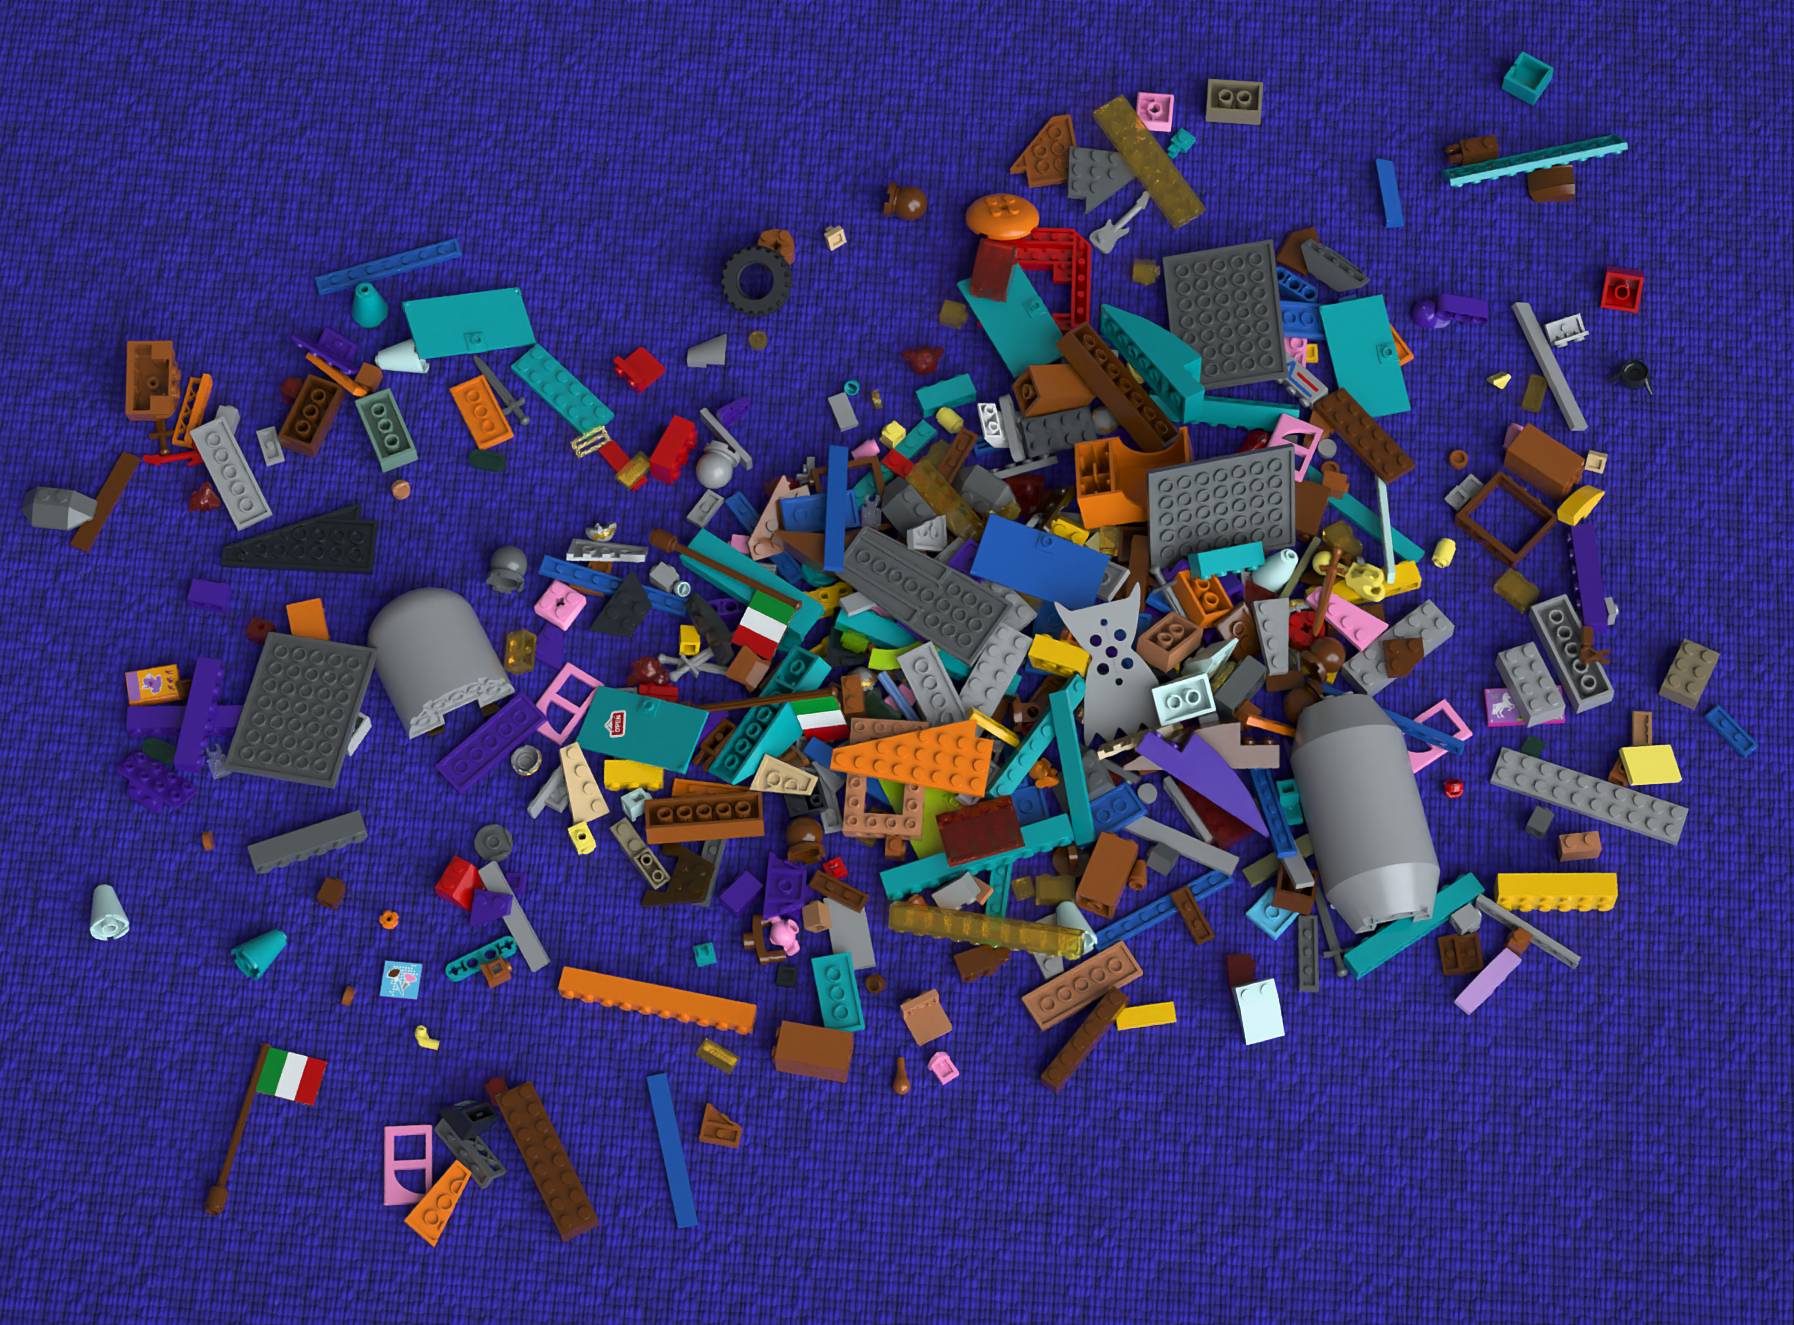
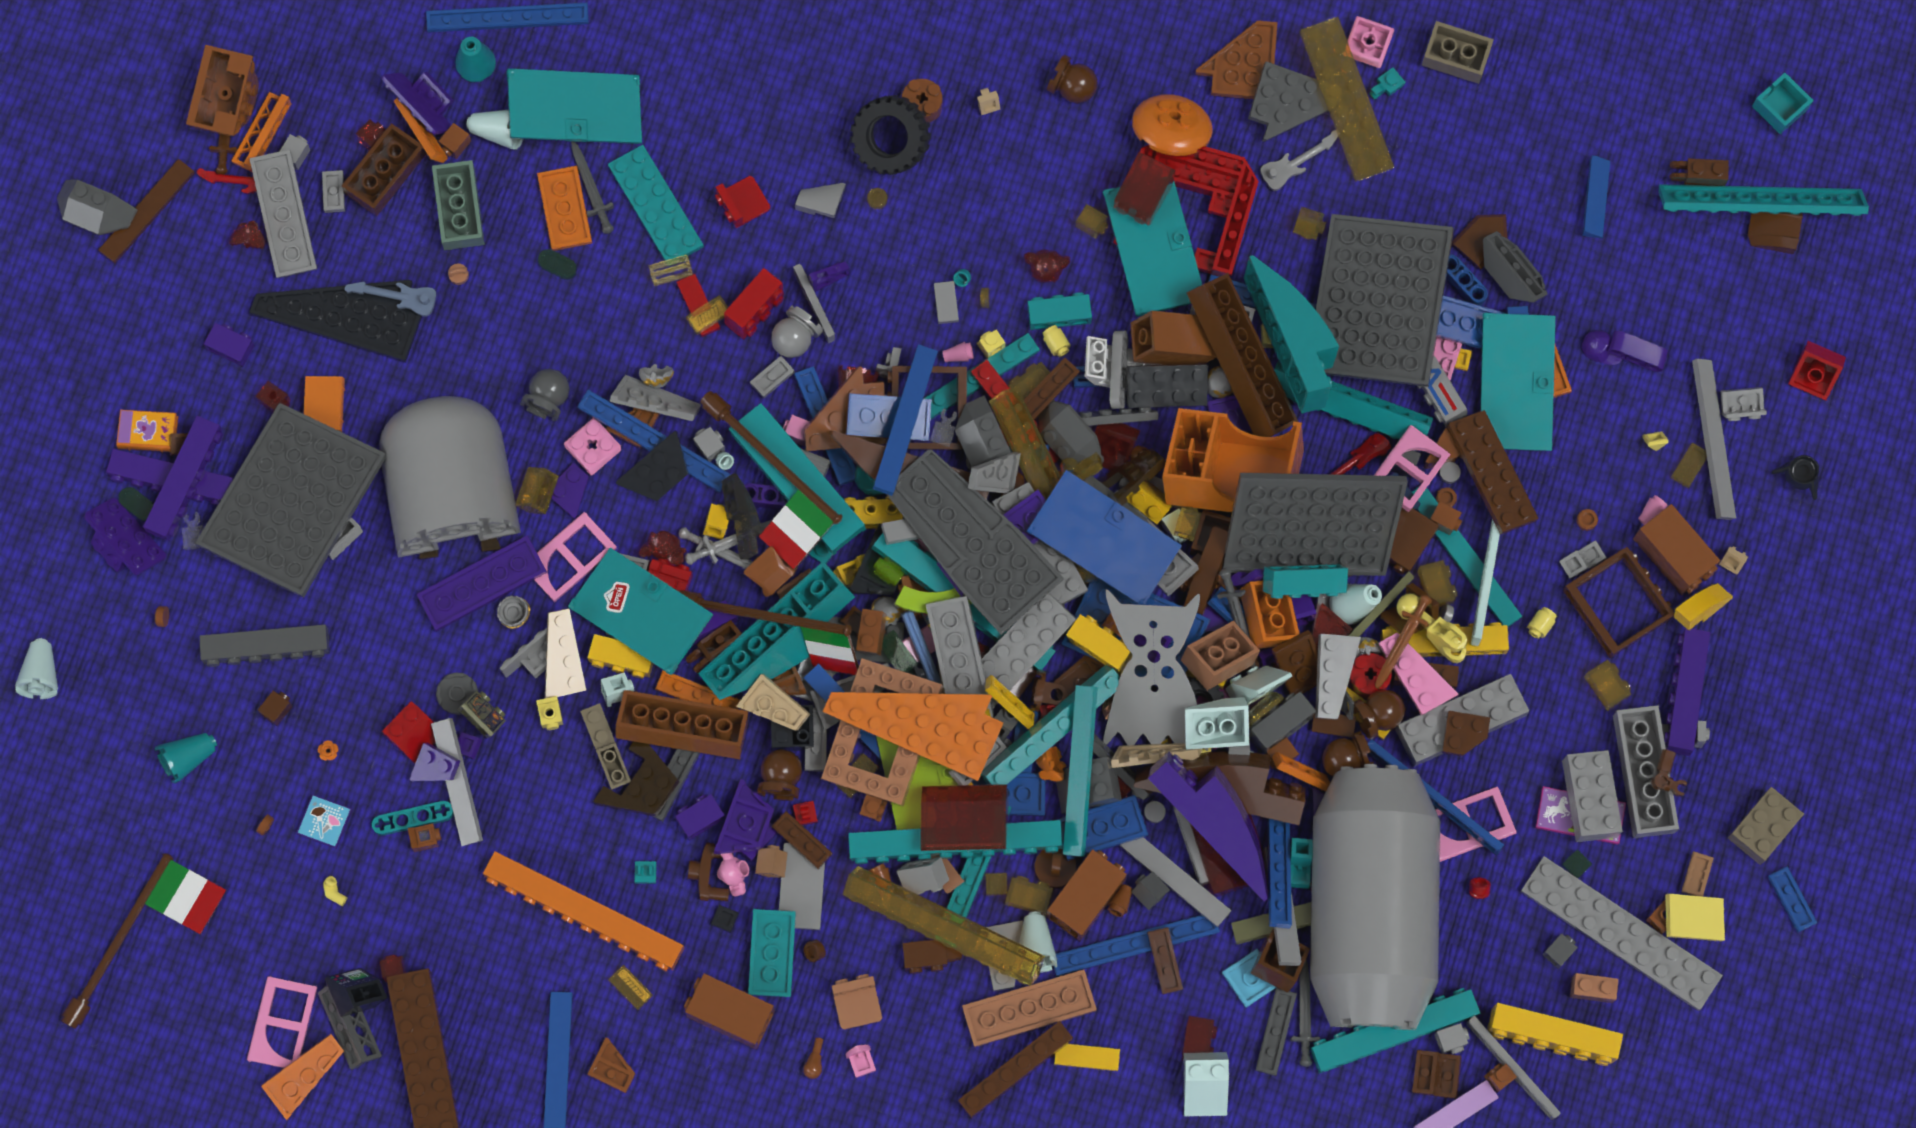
camera: 10 degrees right, 10 degrees up
(372, 517) = (418, 300): none -> sand blue piece
(521, 852) = (482, 714): none -> olive slope

